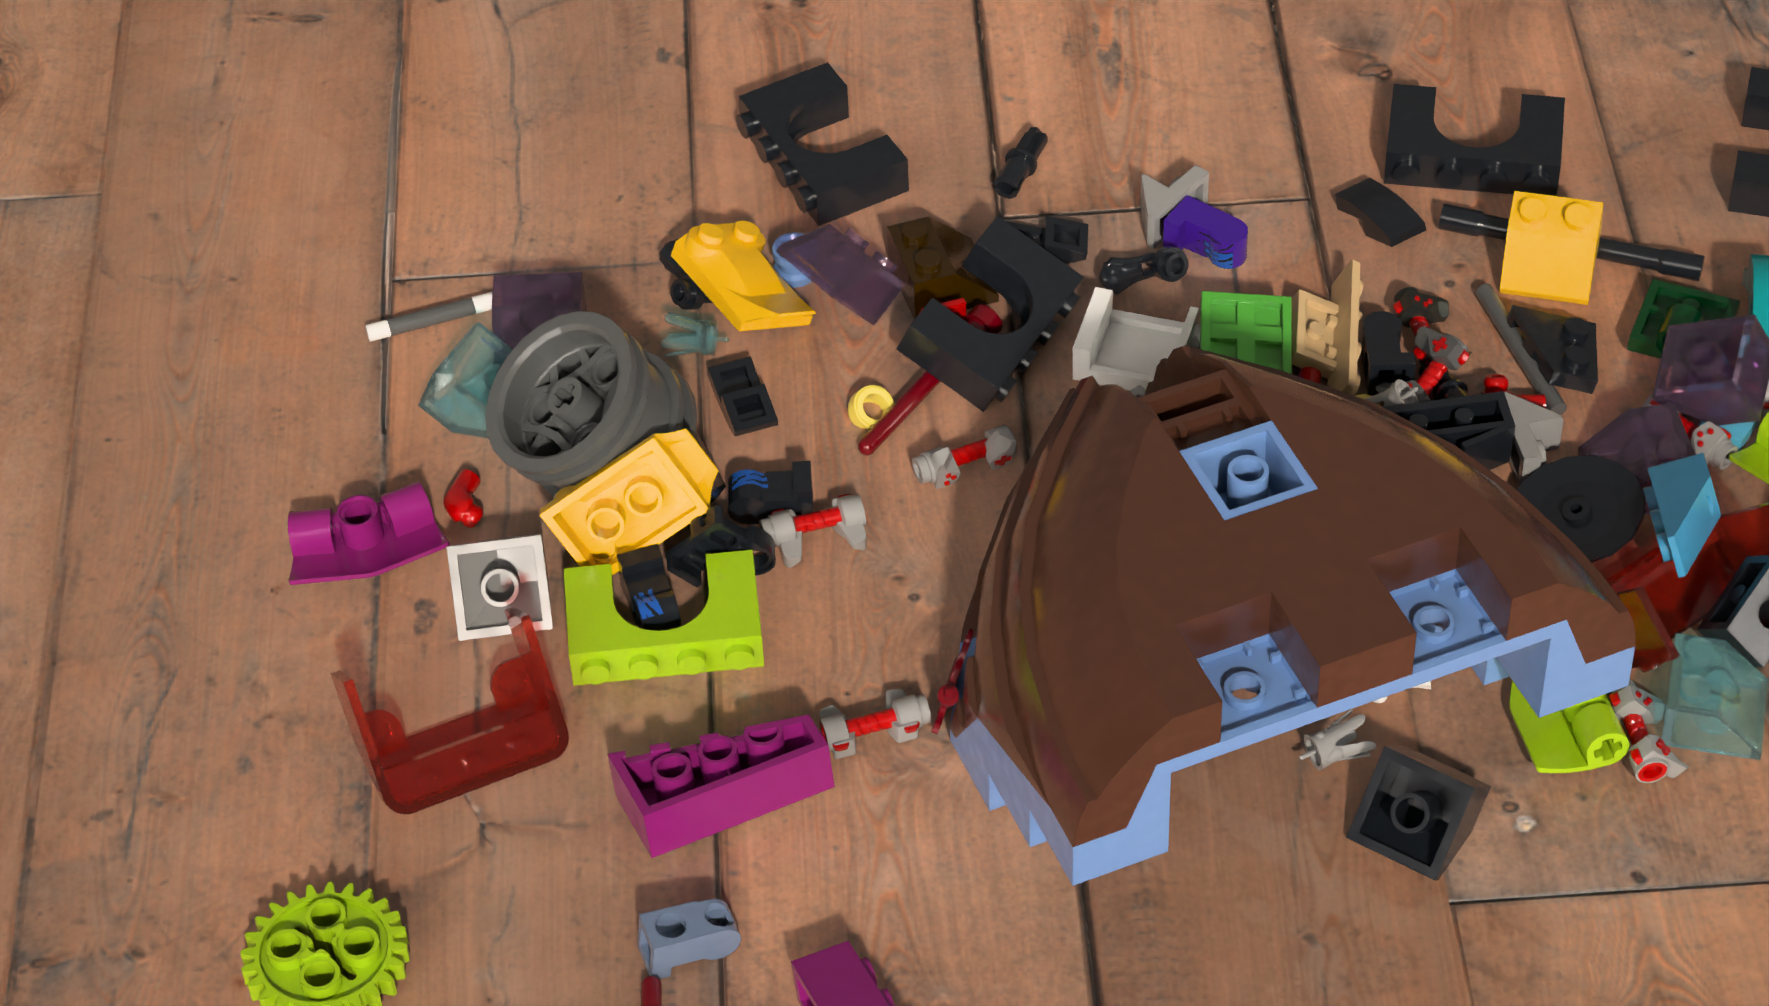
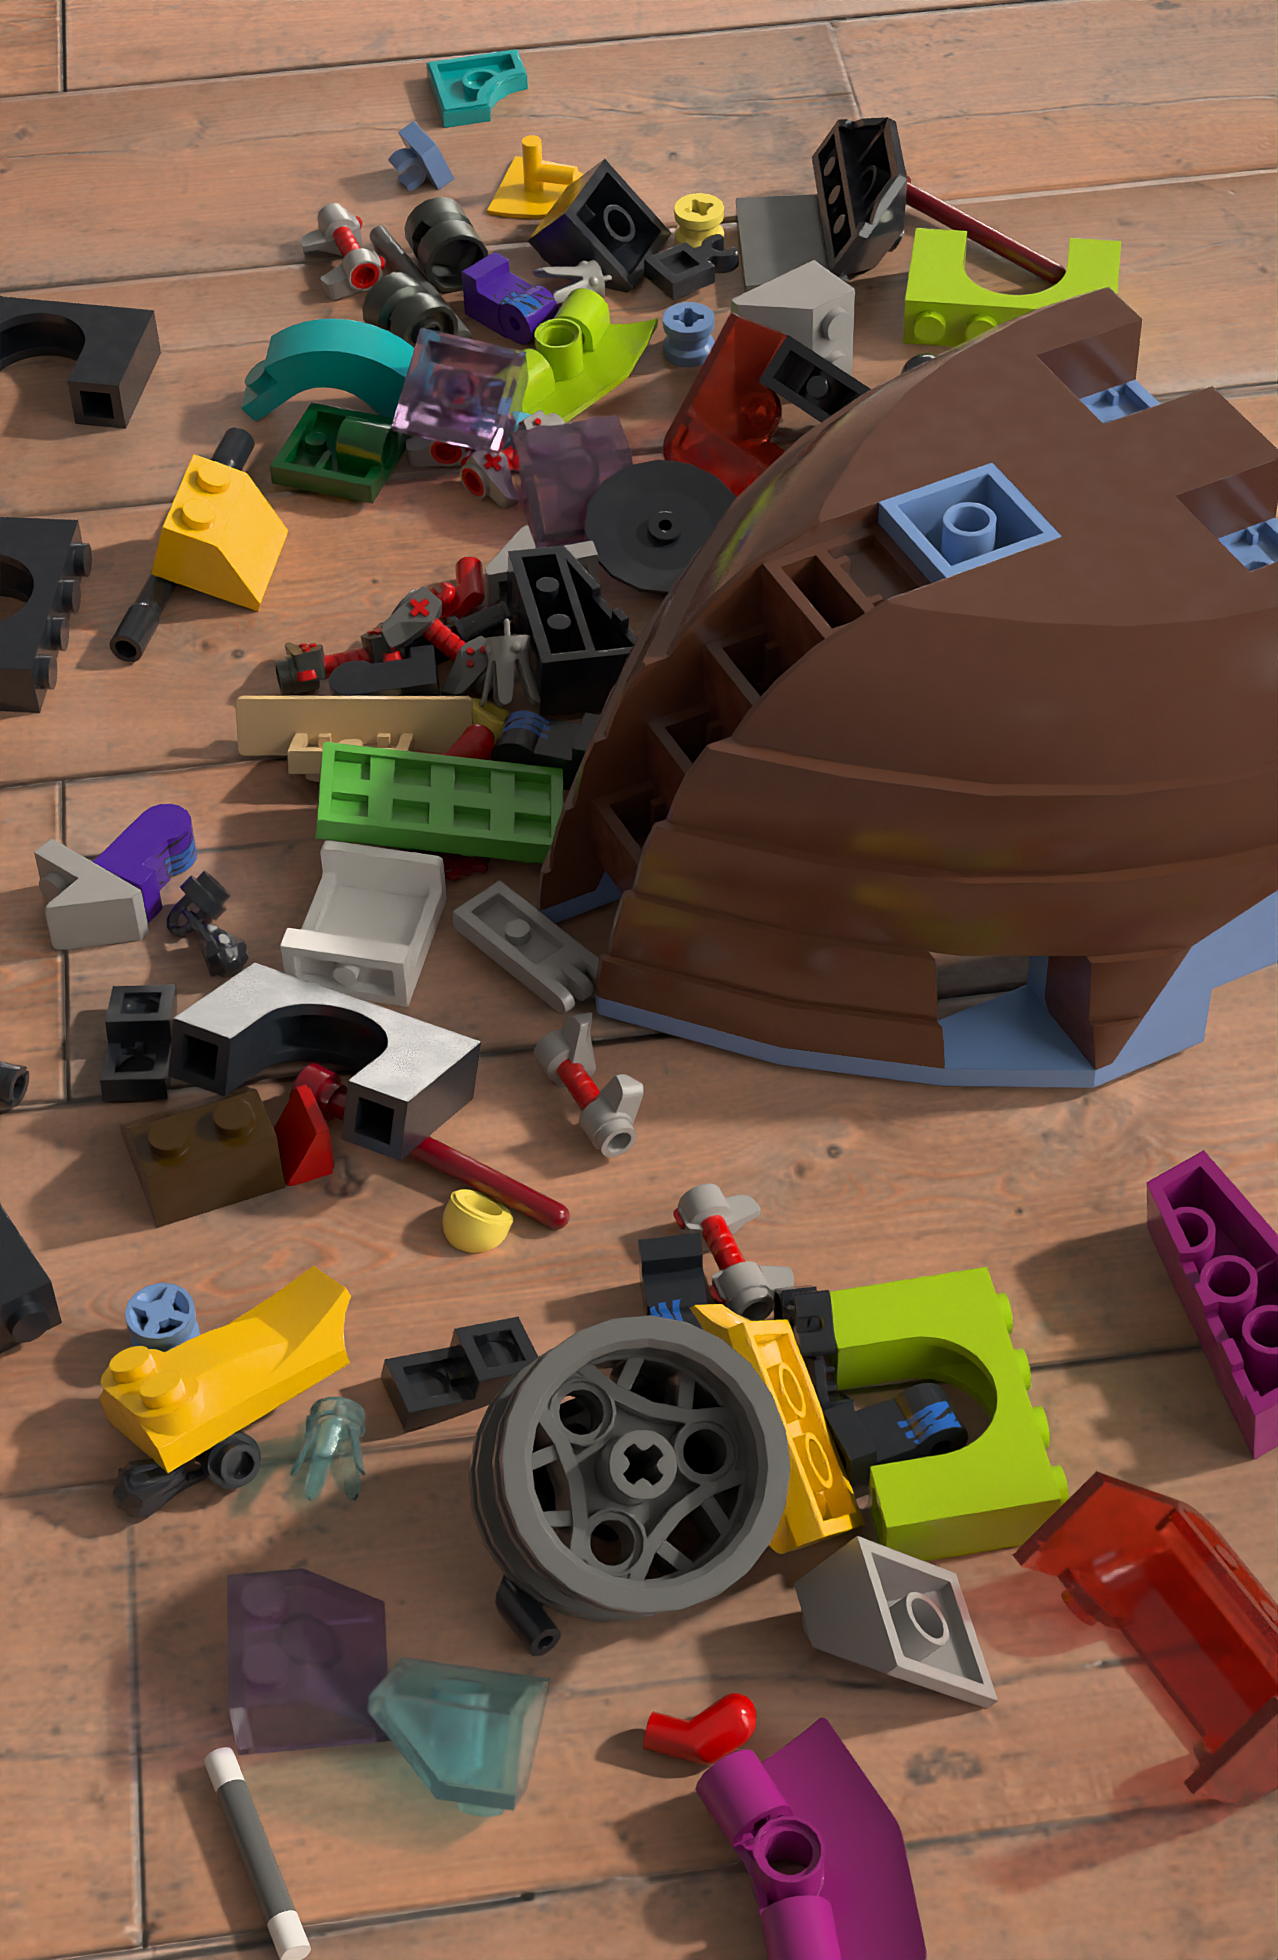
camera: 95 degrees left, 0 degrees up
(845, 270) = (230, 1228): clear purple slope -> none
(900, 718) = (1075, 1133): light grey piece -> none
(949, 694) = (1051, 1061): dark red piece -> none
(1383, 212) = (104, 702): black slope -> none
(1515, 342) = (361, 589): dark grey bar -> none
(1560, 346) = (382, 543): black wing -> none
(1682, 509) = (700, 418): dark azure slope -> none

